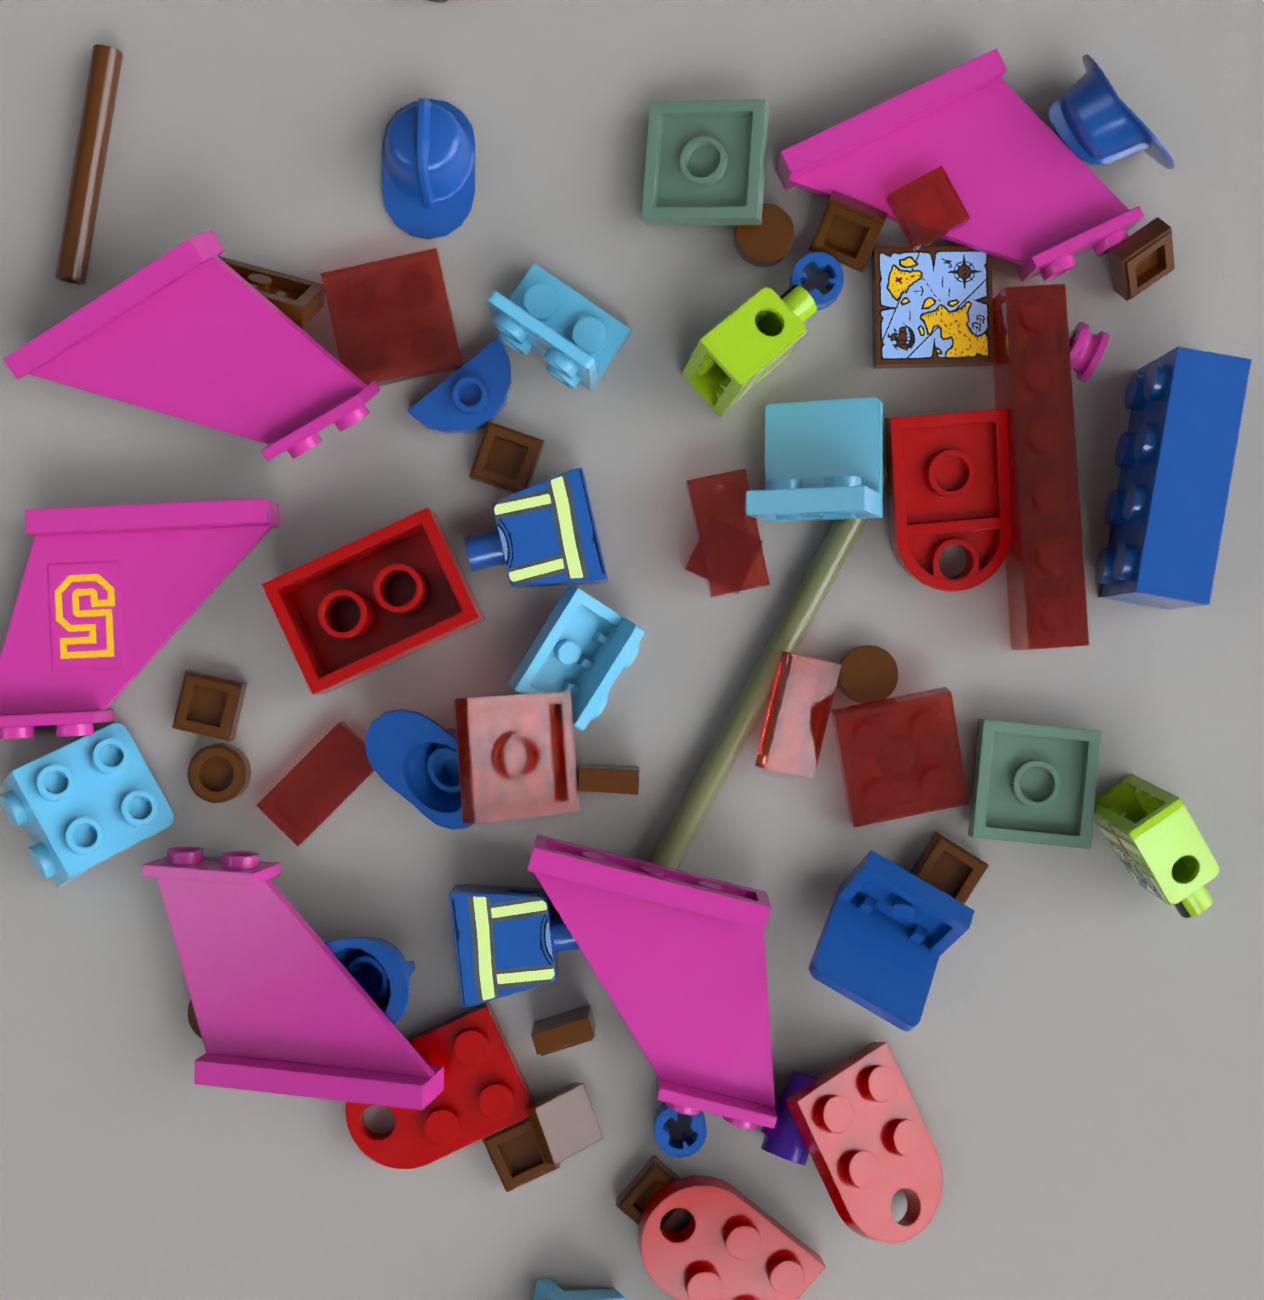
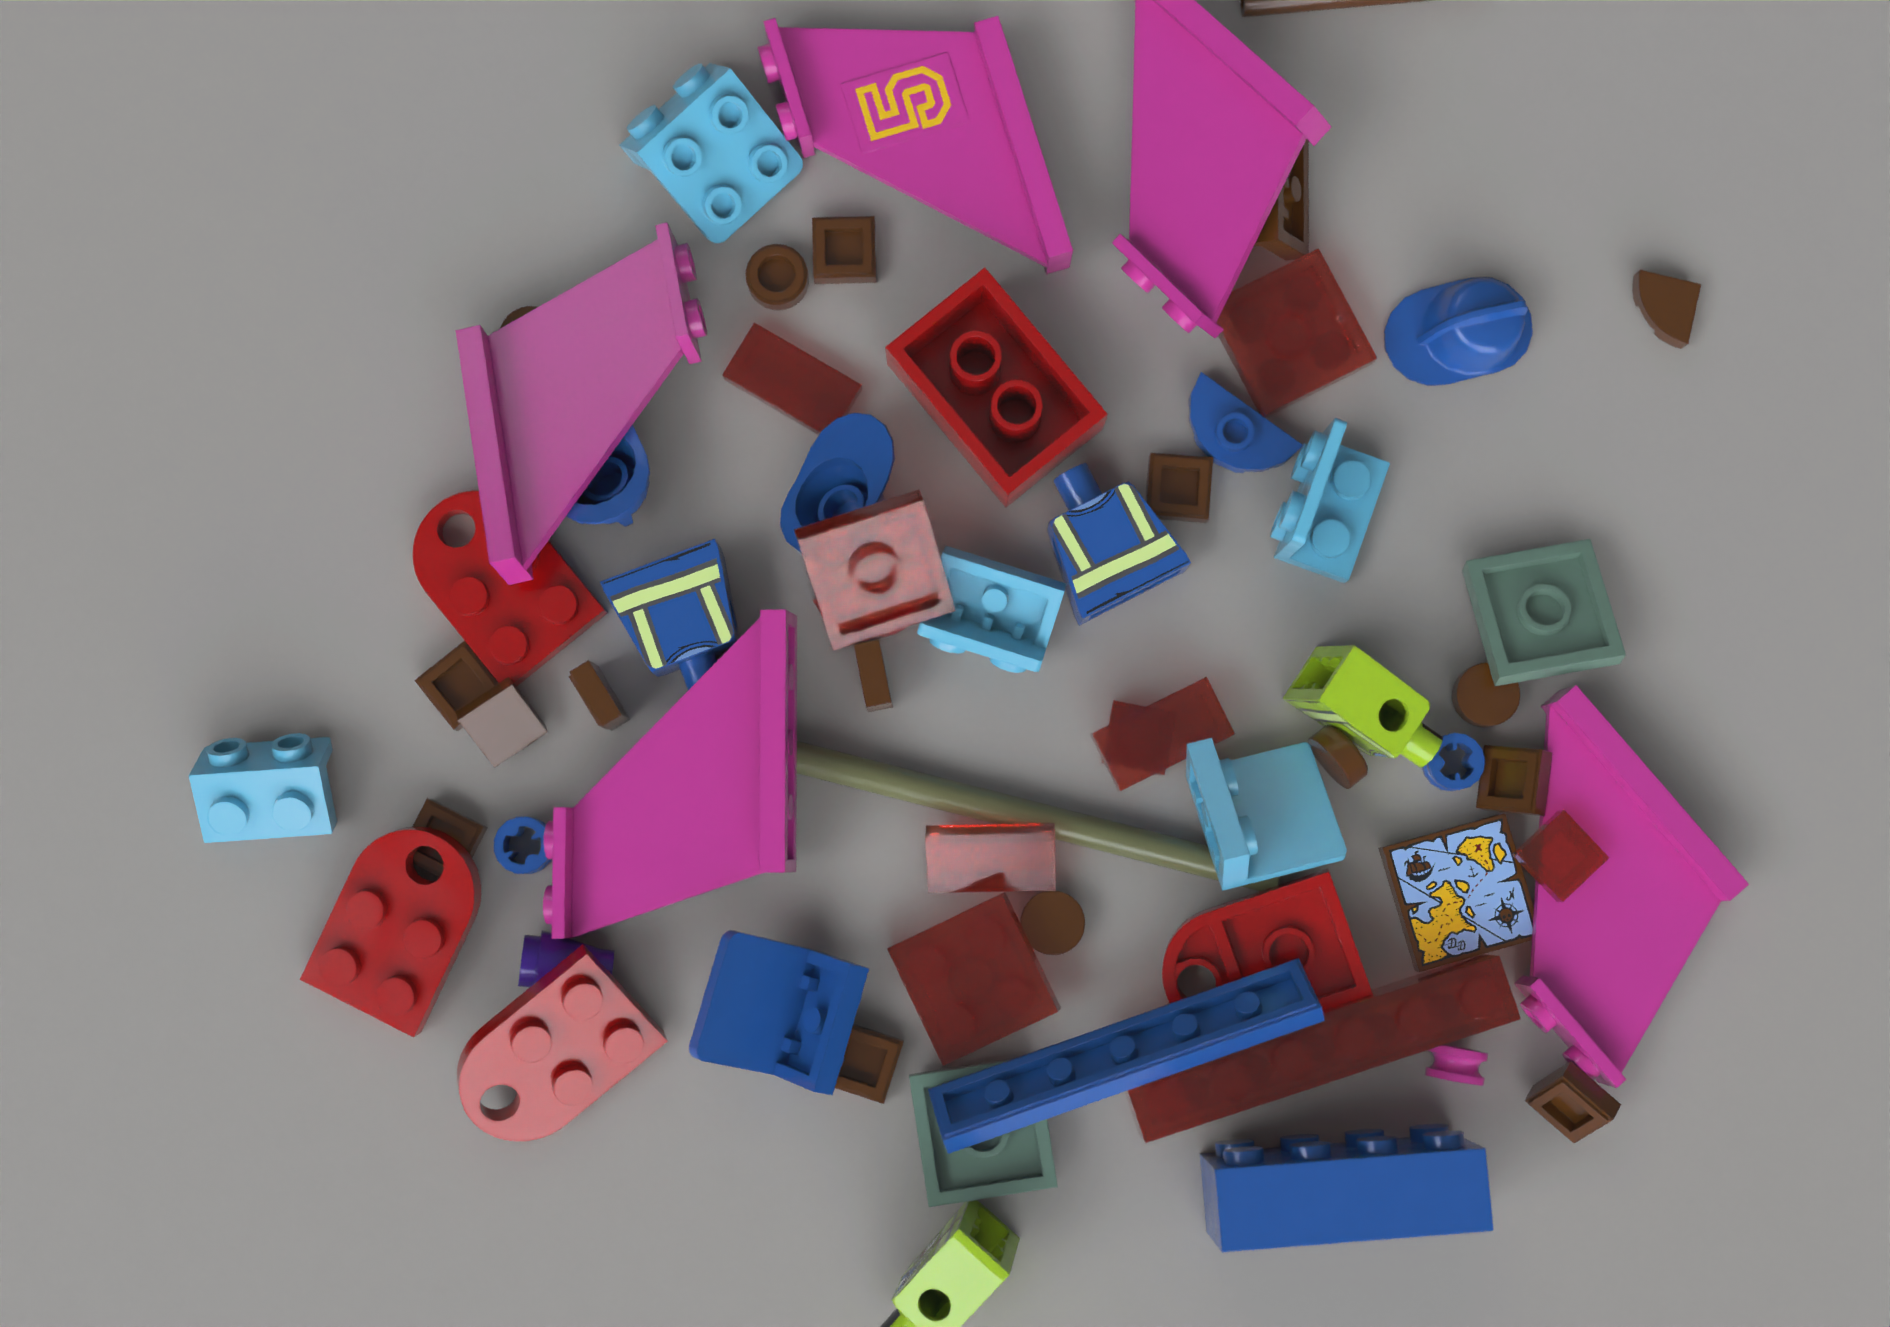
camera: 75 degrees right, 5 degrees down
(786, 381) = (1338, 756): none -> reddish brown tile
(1007, 643) = (1125, 1055): none -> blue tile
(1100, 124) = (1700, 1013): blue piece -> none

